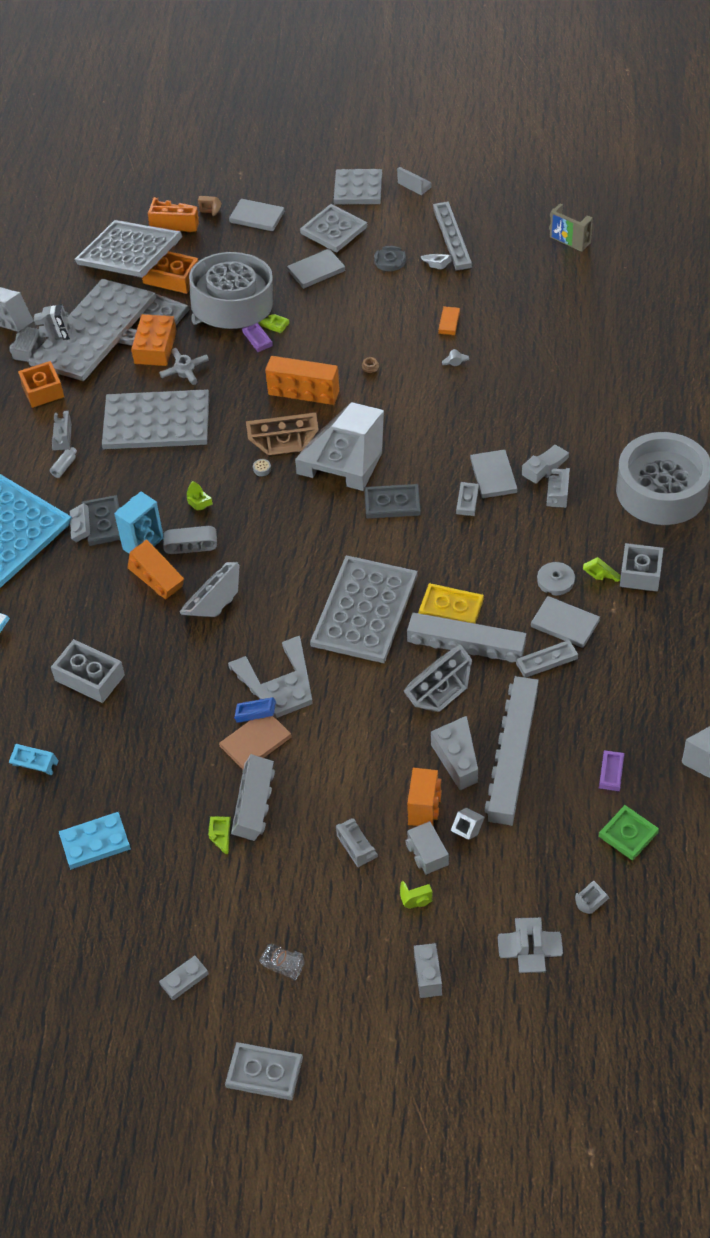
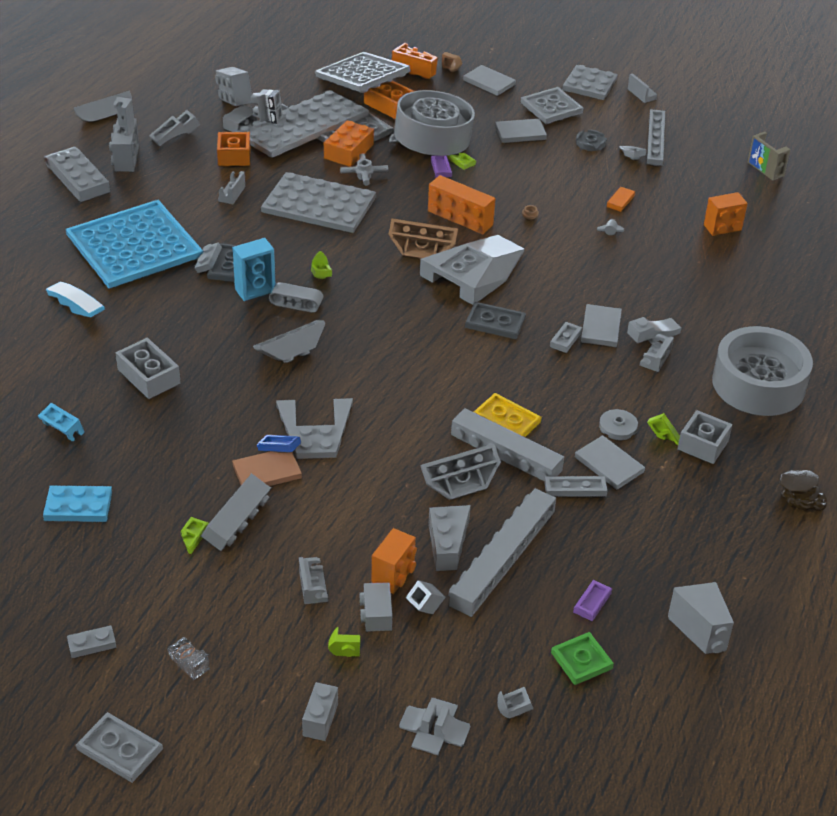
camera: 15 degrees right, 10 degrees down
(63, 462) = (220, 210): light grey cylinder -> none
(154, 570) = (250, 308): orange wedge -> none
(262, 467) = (391, 262): tile -> none
(364, 609) = (423, 395): light grey plate -> none
(558, 310) = (725, 213): none -> orange brick

